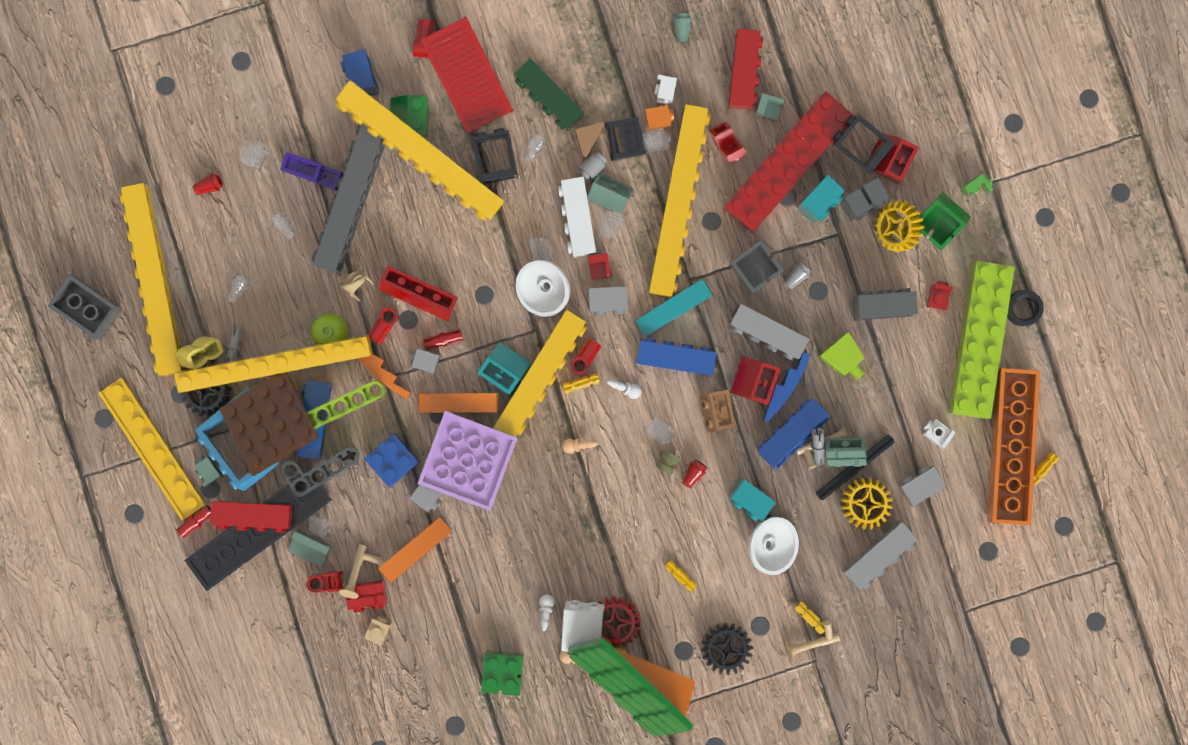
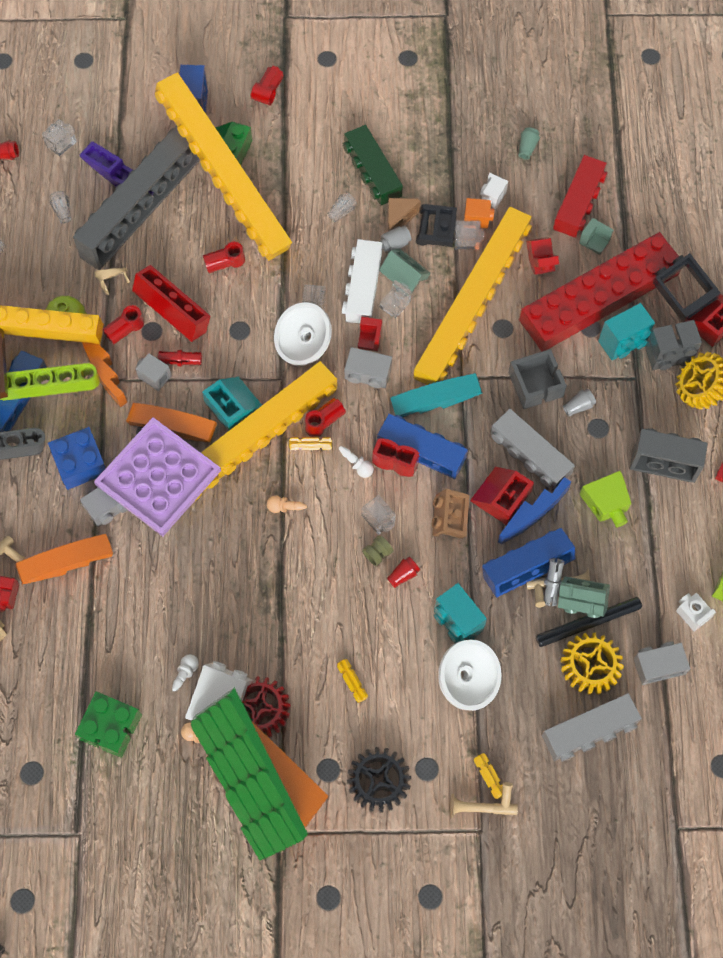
camera: 20 degrees right, 20 degrees down
(445, 233) = (222, 258): none -> red piece
(466, 75) = (297, 125): red window -> none
(497, 176) = (298, 221): black window -> none
(664, 378) = (390, 456): none -> red brick

